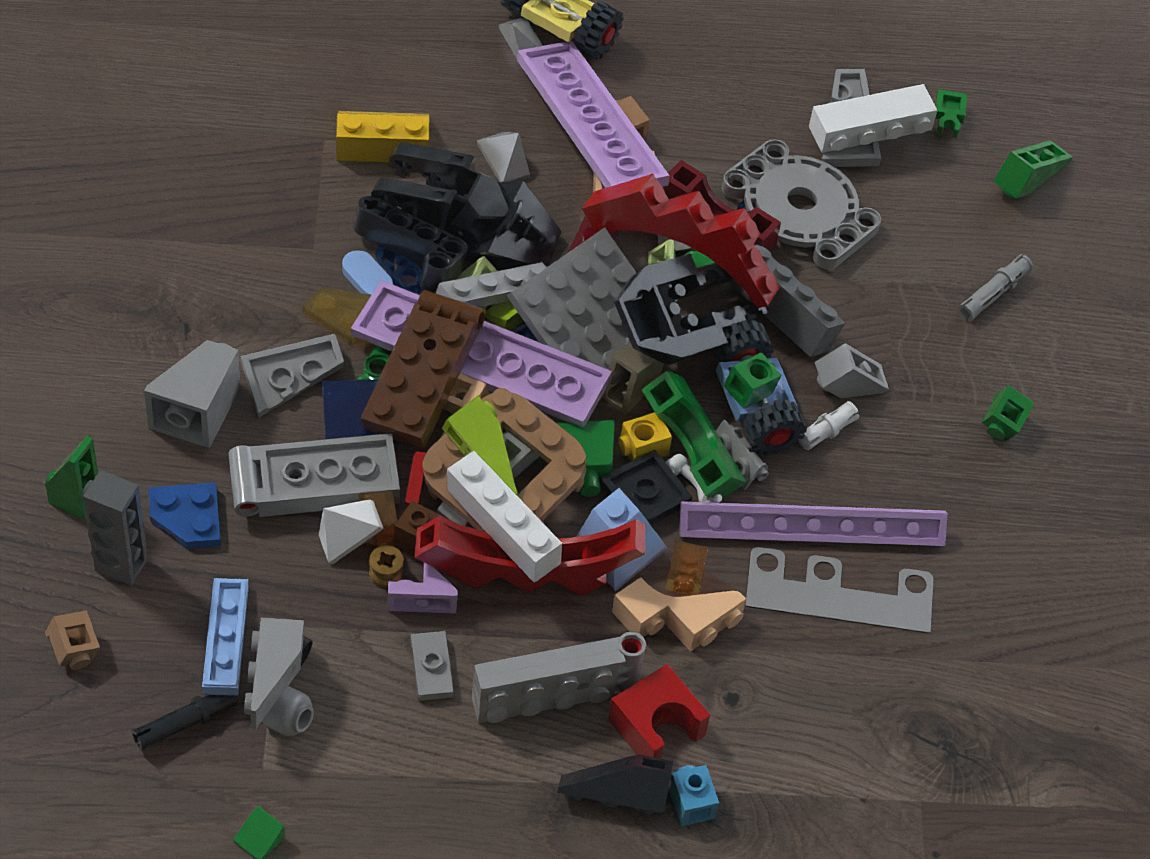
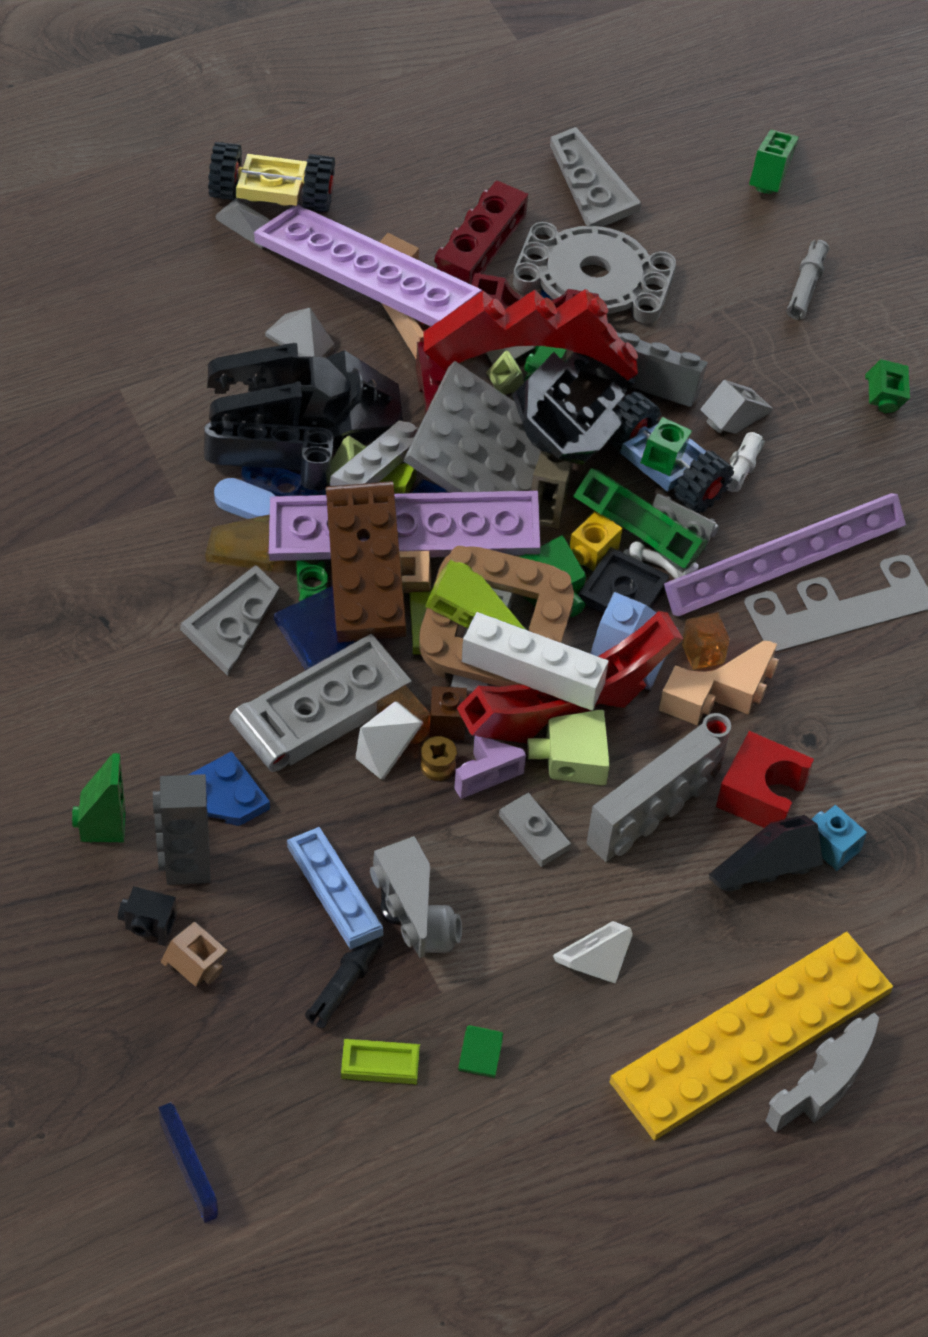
camera: 25 degrees left, 0 degrees up
(59, 587) = (149, 914): none -> black brick
(171, 802) = (380, 1061): none -> lime tile
(195, 394) = (164, 677): light grey slope -> none
(376, 134) = (174, 362): yellow slope -> none
(415, 798) = (599, 952): none -> white slope
(416, 479) = (416, 666): red tile -> none
(509, 610) = (574, 748): none -> yellowish green torso
(719, 130) = (483, 232): none -> dark red brick
(872, 118) = (616, 168): white brick -> none
(950, 110) = (671, 134): green plate -> none

